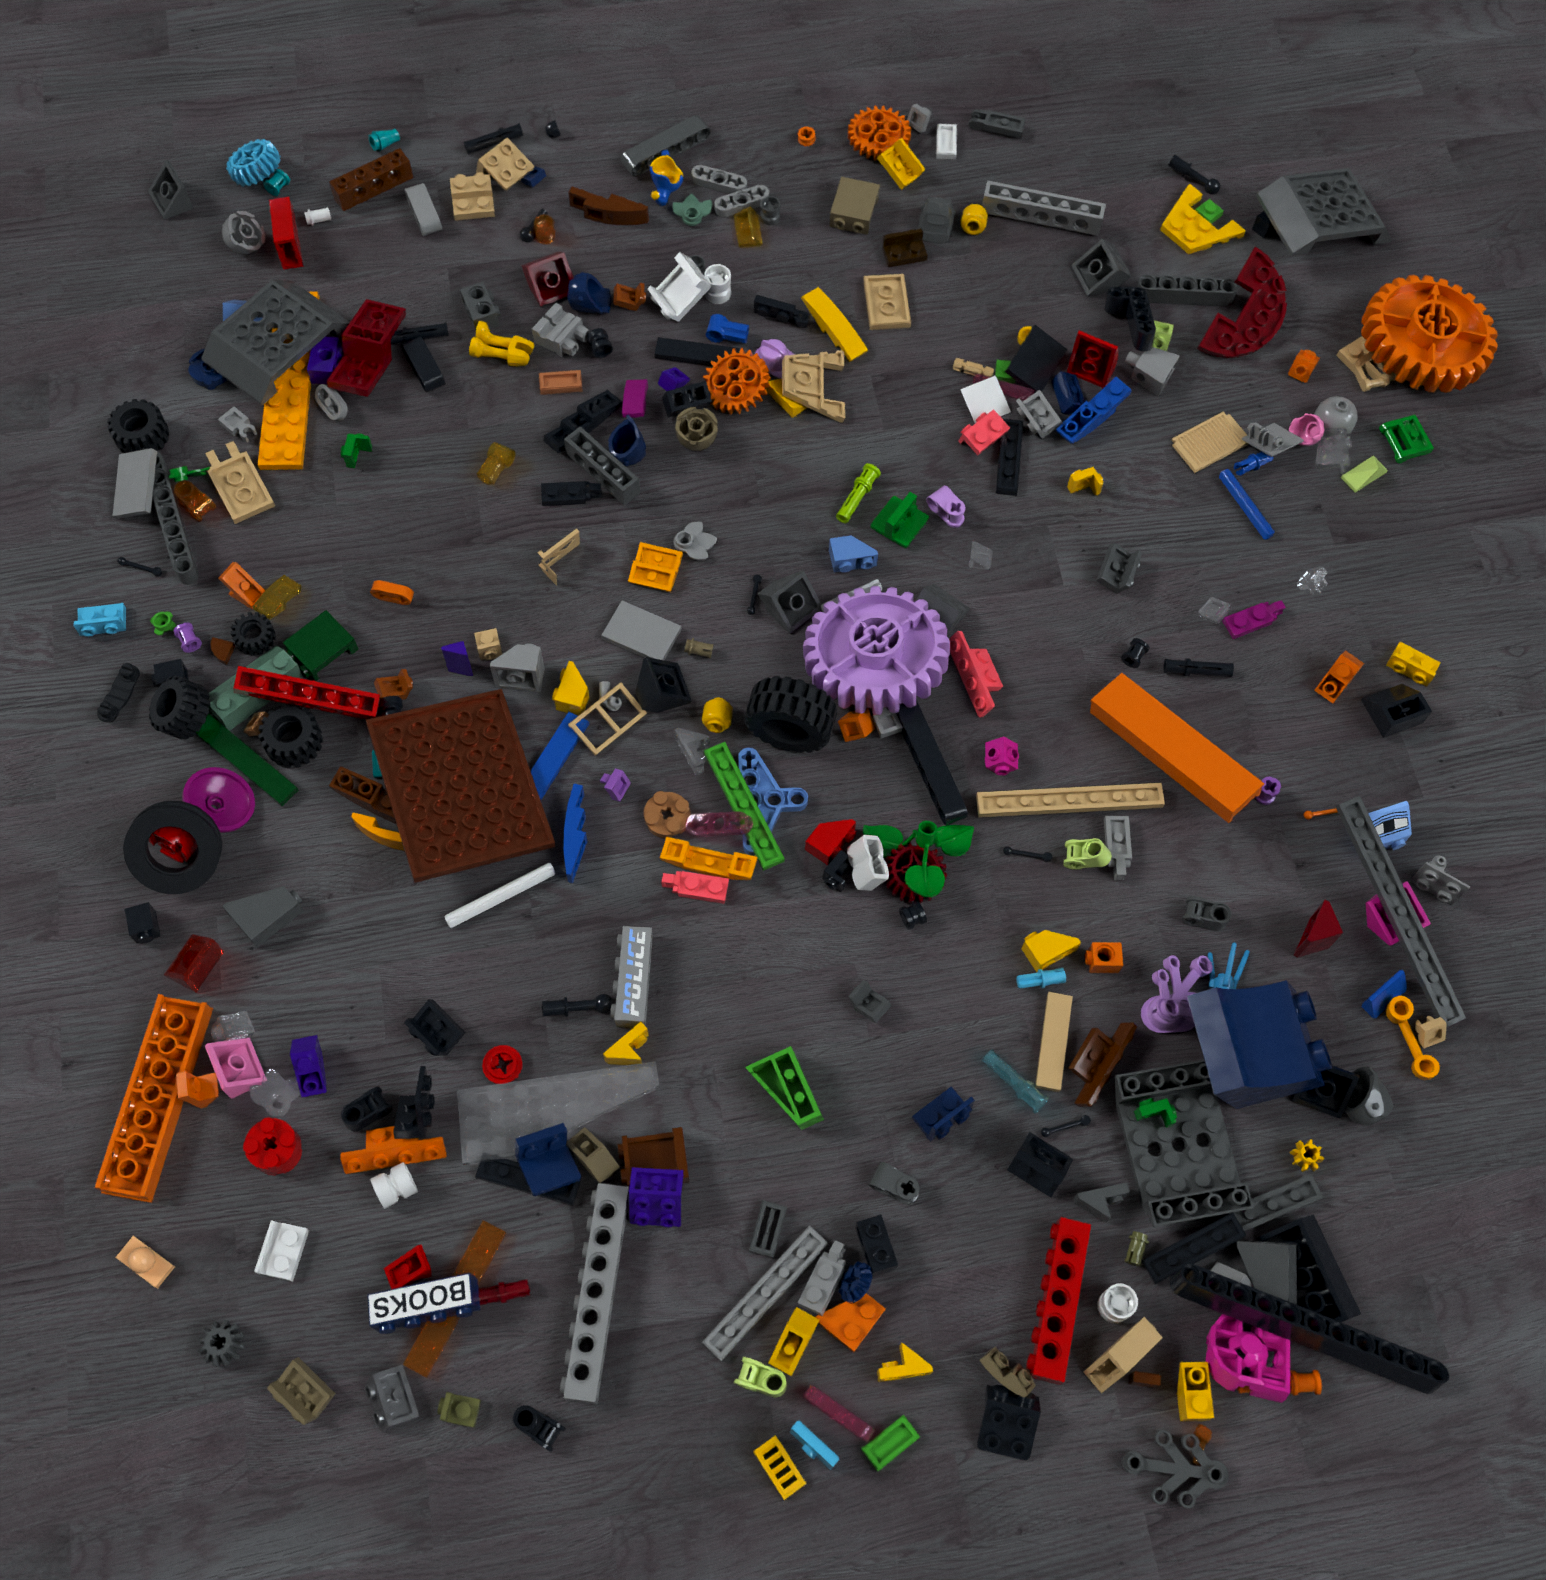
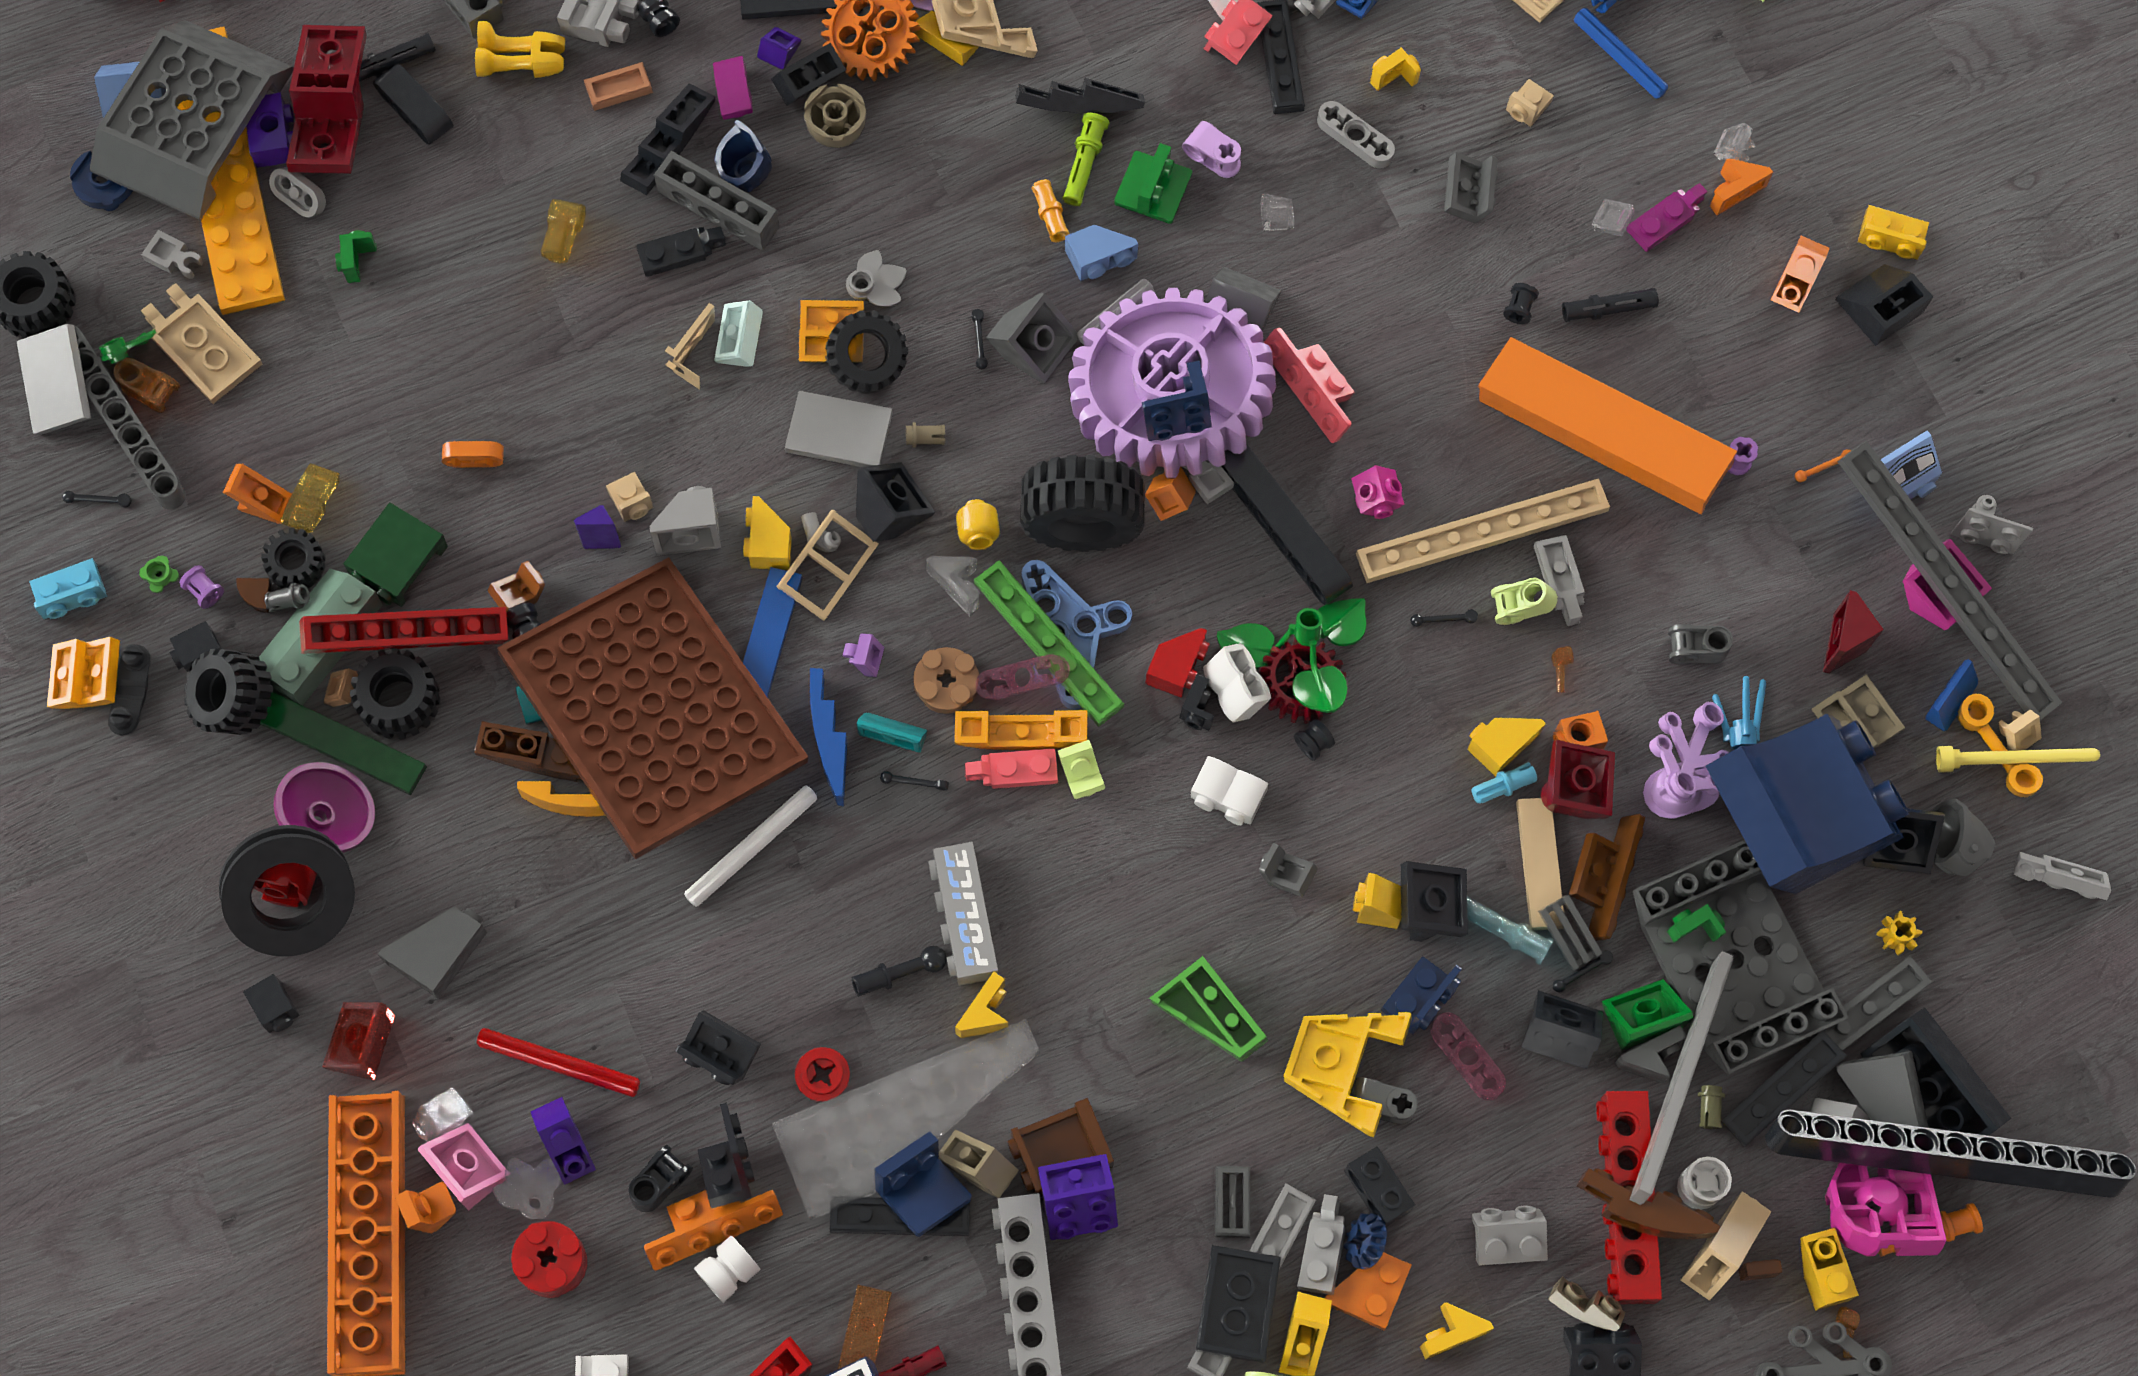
camera: 15 degrees left, 5 degrees up
(92, 675) = (83, 673): none -> light orange slope
(243, 657) = (294, 596): none -> dark grey pin
(323, 1011) = (558, 1062): none -> red axle
(593, 555) = (738, 334): none -> light aqua slope
(608, 871) = (886, 777): none -> black hinge
(619, 840) = (891, 732): none -> teal slope
(681, 566) = (886, 332): none -> black tyre
(742, 896) = (1081, 769): none -> yellowish green bracket
(750, 1305) = (1238, 1304): none -> black tile
(825, 521) = (1050, 210): none -> light orange pin
(842, 936) = (1229, 791): none -> white brick
(864, 1142) = (1329, 1056): none -> yellow wing
(872, 665) = (1179, 412): none -> dark blue bracket
(873, 454) = (1091, 98): none -> black slope
(928, 1039) = (1378, 902): none -> yellow slope
(964, 1306) = (1510, 1235): none -> light grey bracket
(967, 1047) = (1433, 900): none -> black bracket
(980, 1181) = (1445, 1041): none -> clear pink beam
(1049, 527) = (1352, 121): none -> light grey beam
(1060, 1119) = (1584, 956): none -> dark grey tile
(1077, 1320) = (1657, 1217): none -> reddish brown slope
(1095, 989) = (1580, 781): none -> dark red slope
(1104, 899) = (1561, 657): none -> clear orange hand
(1104, 1168) = (1645, 1013): none -> green slope
(1116, 1222) = (1681, 1079): none -> light grey tile
(1174, 522) = (1529, 102): none -> tan bracket
(1310, 607) = (1741, 182): none -> orange slope
(1320, 987) = (1866, 705): none -> dark tan slope
(1373, 1039) = (1949, 759): none -> light yellow piece
(1440, 1143) = (2063, 874): none -> light grey hinge

